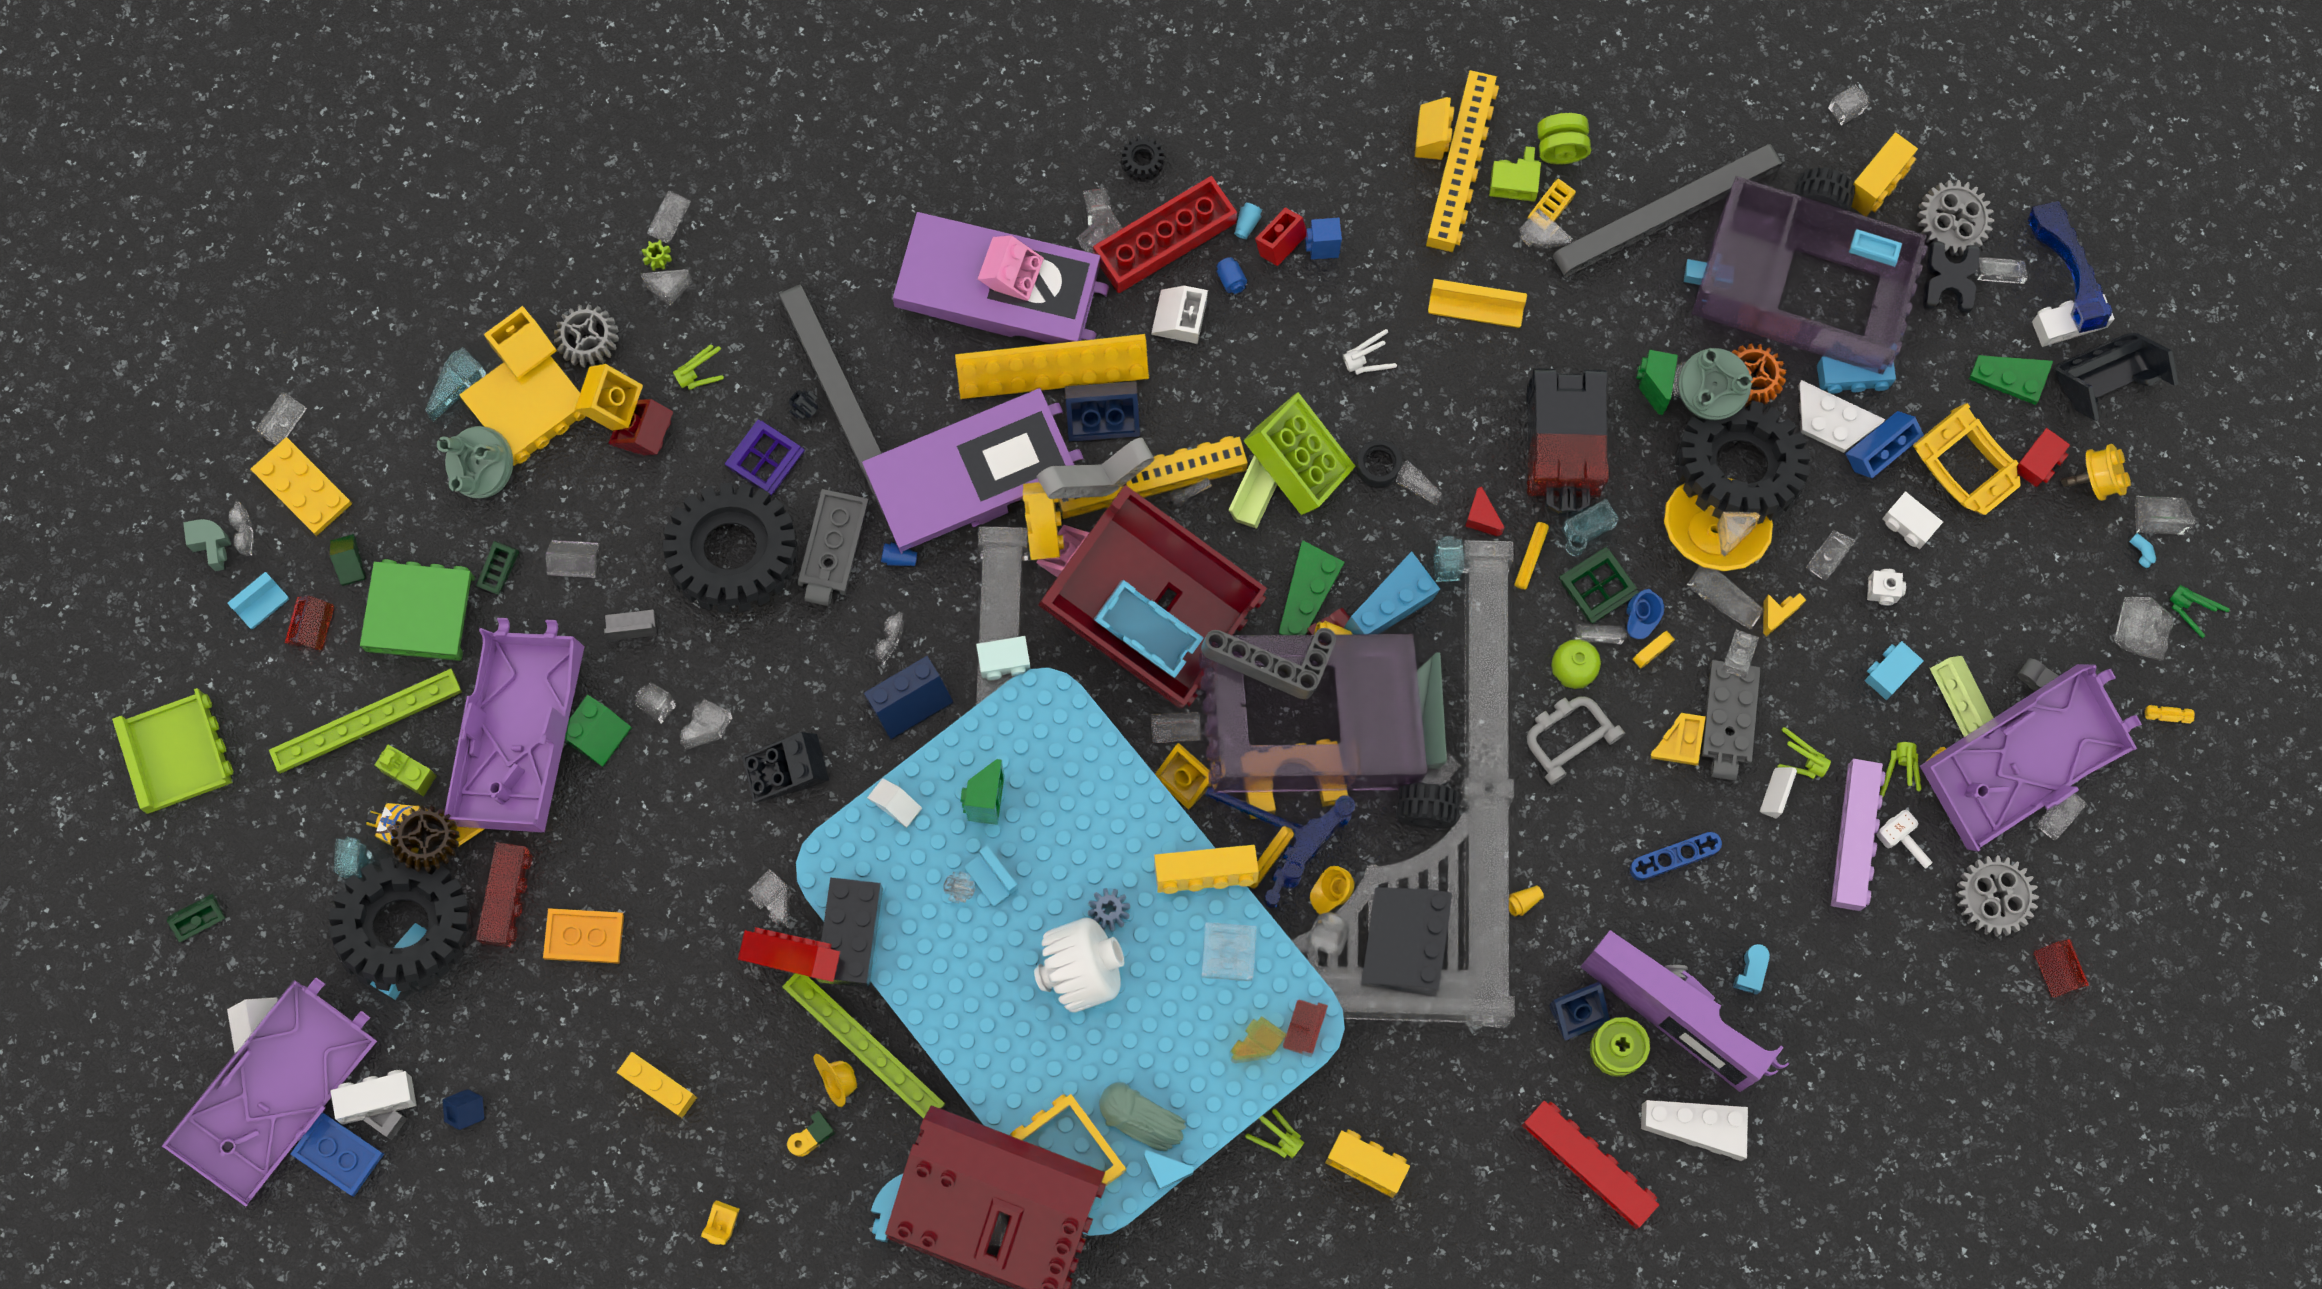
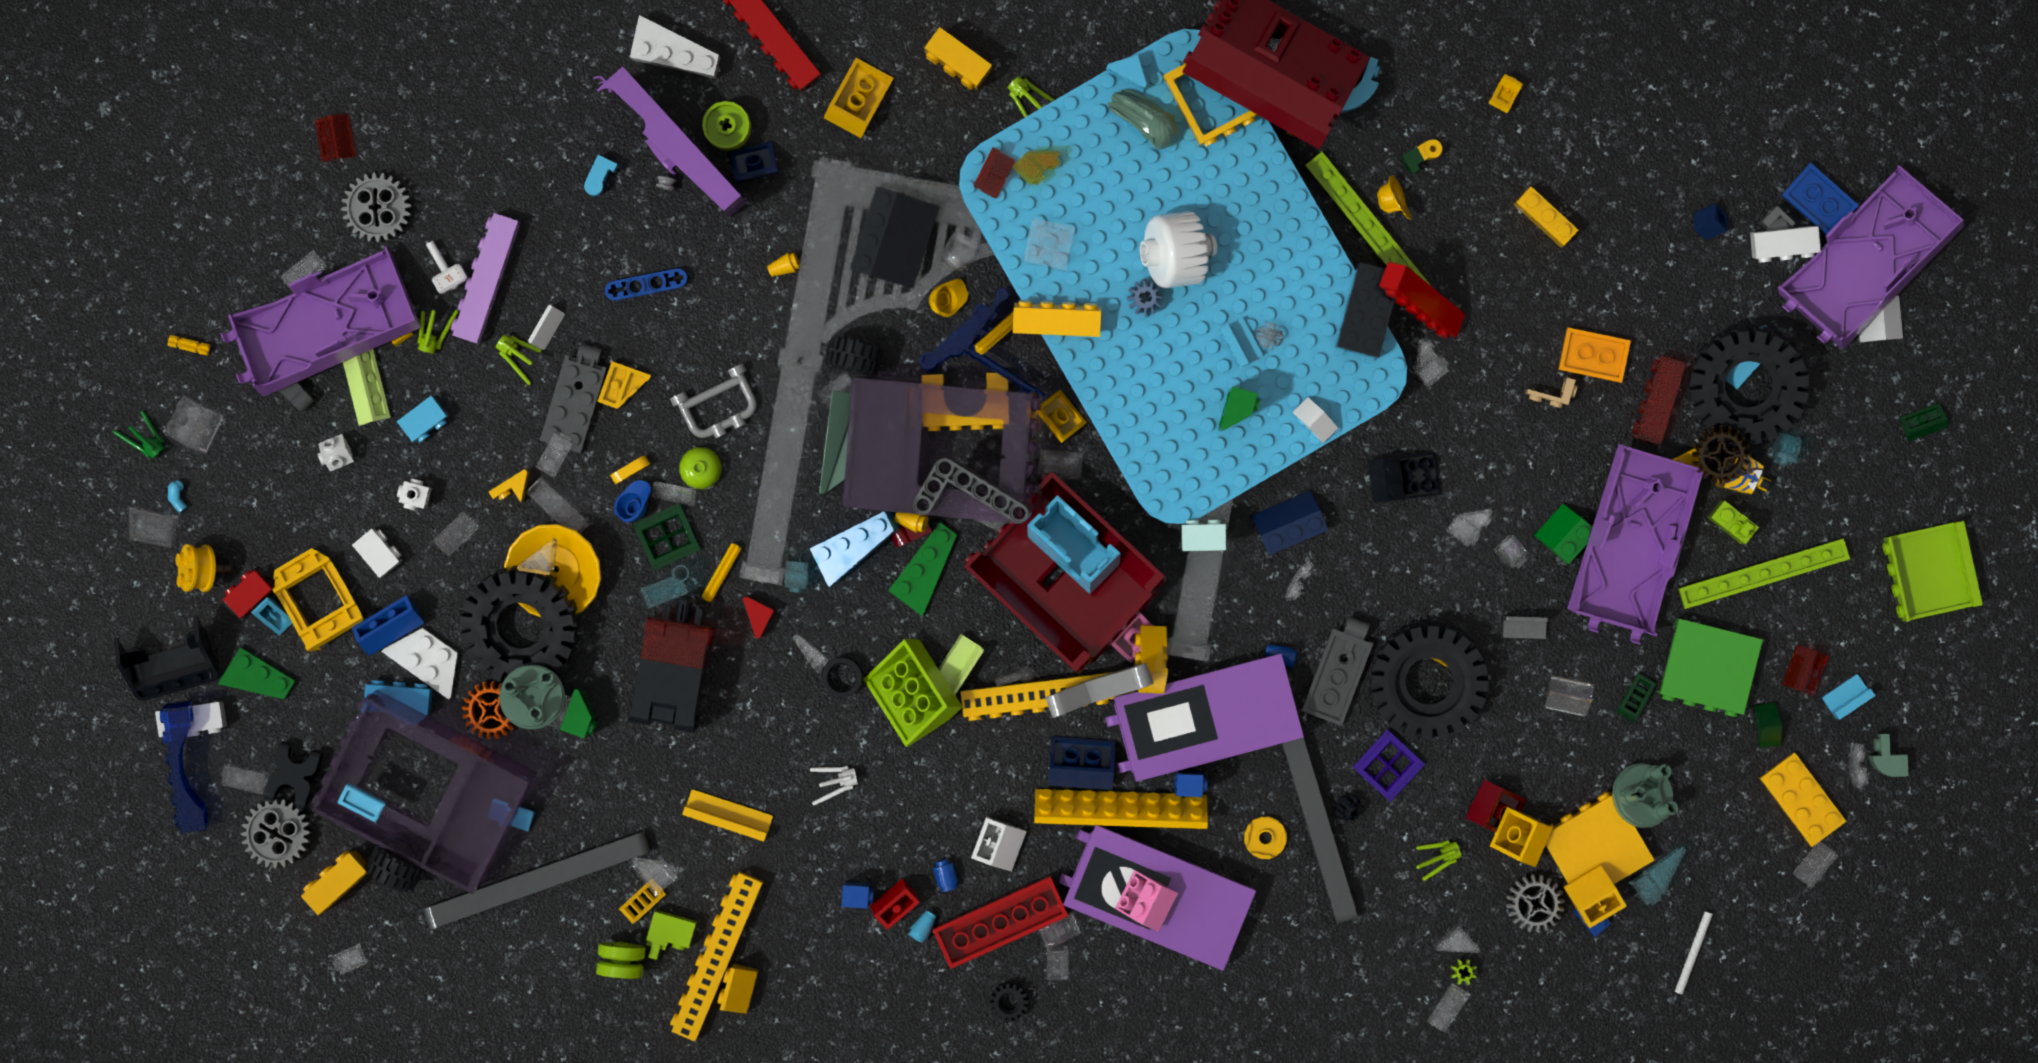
camera: 165 degrees left, 15 degrees up
(407, 311) = (1693, 952): none -> white bar
(610, 889) = (1568, 390): none -> tan bracket
(895, 376) = (1260, 825): none -> yellow tile
(979, 394) = (1189, 783): none -> blue brick
(1474, 1104) = (858, 98): none -> yellow slope
(1982, 619) = (335, 452): none -> white brick
(2012, 438) = (272, 615): none -> medium azure slope

